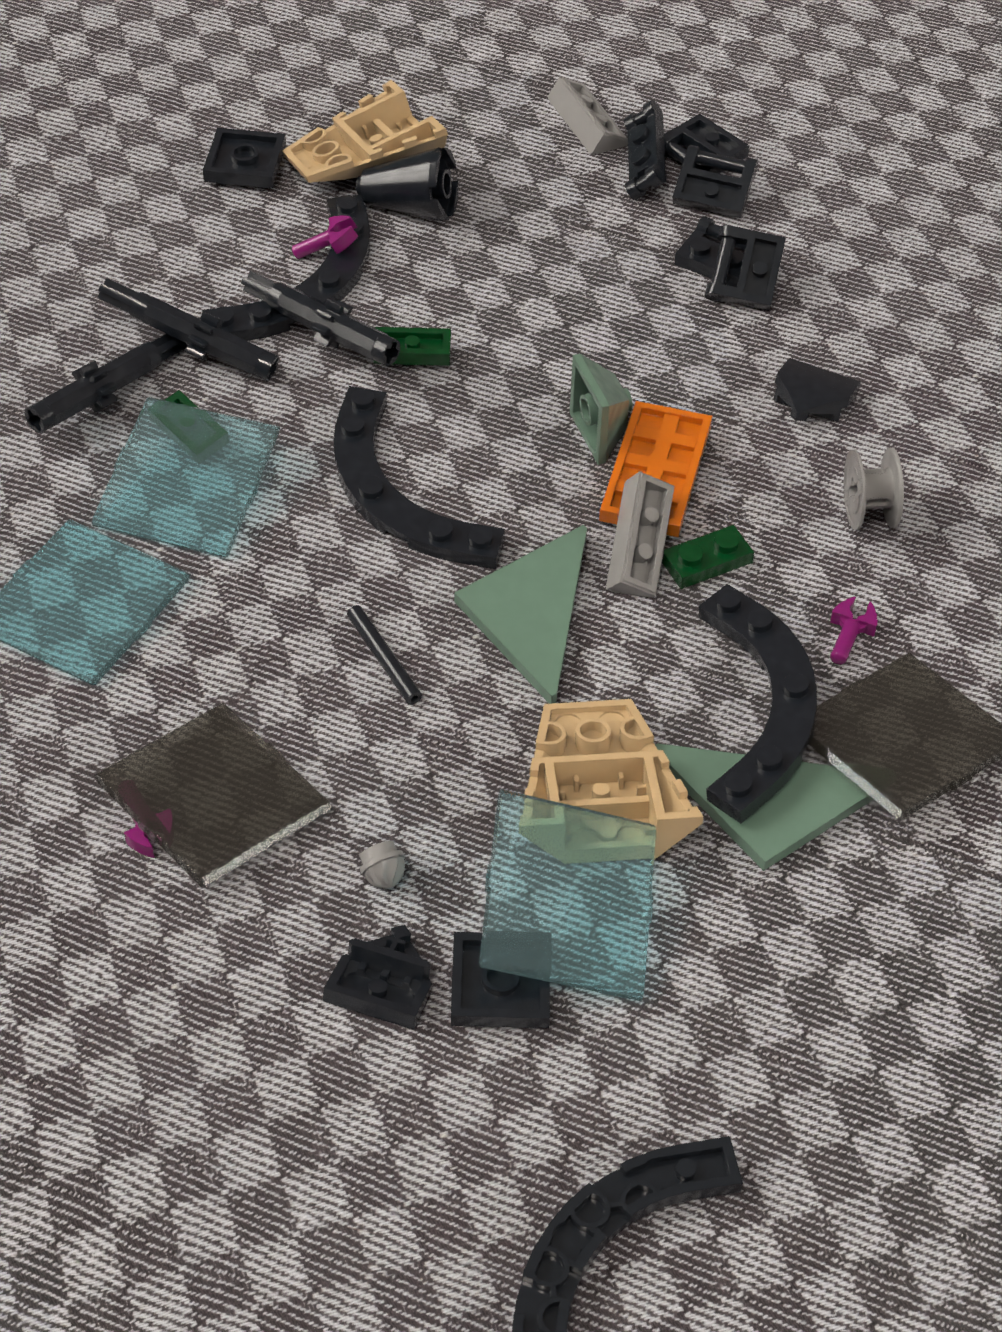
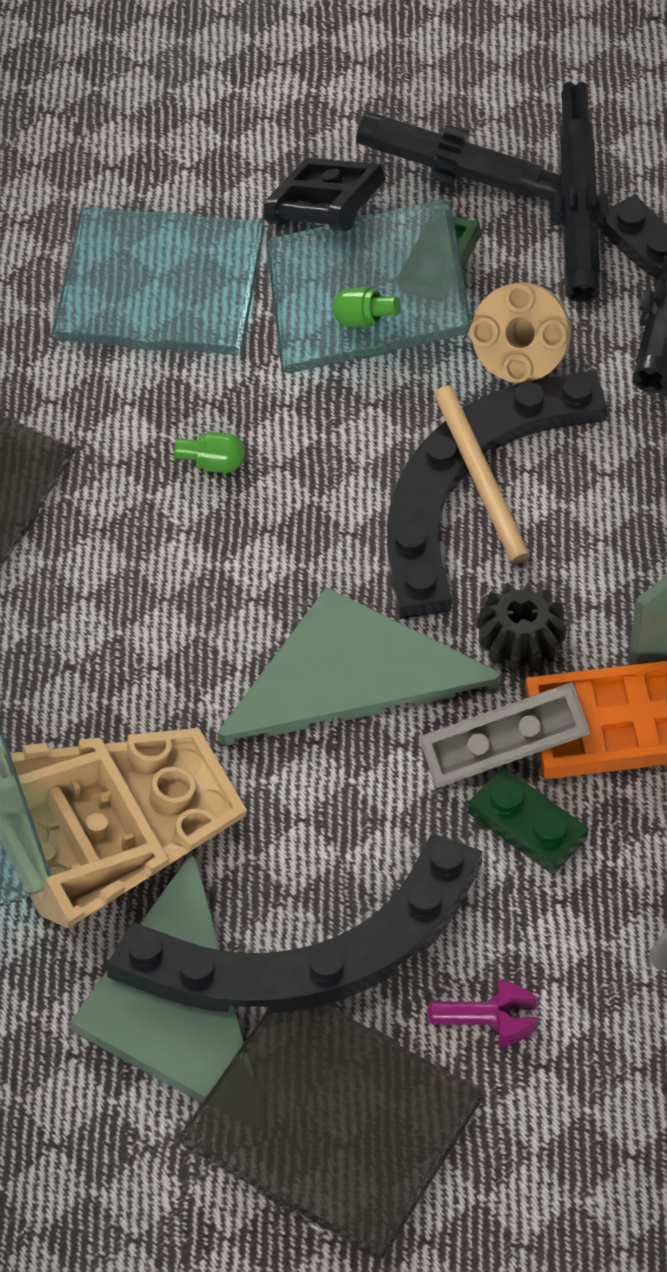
camera: 70 degrees right, 5 degrees up
(73, 459) = (326, 181): none -> black plate
(219, 476) = (363, 307): none -> bright green cylinder
(283, 619) = (212, 451): none -> bright green cylinder
(304, 400) = (521, 332): none -> tan plate
(384, 655) = (210, 560): black piece -> none
(406, 473) = (482, 475): none -> tan bar
(552, 499) = (521, 626): none -> pearl dark grey gear

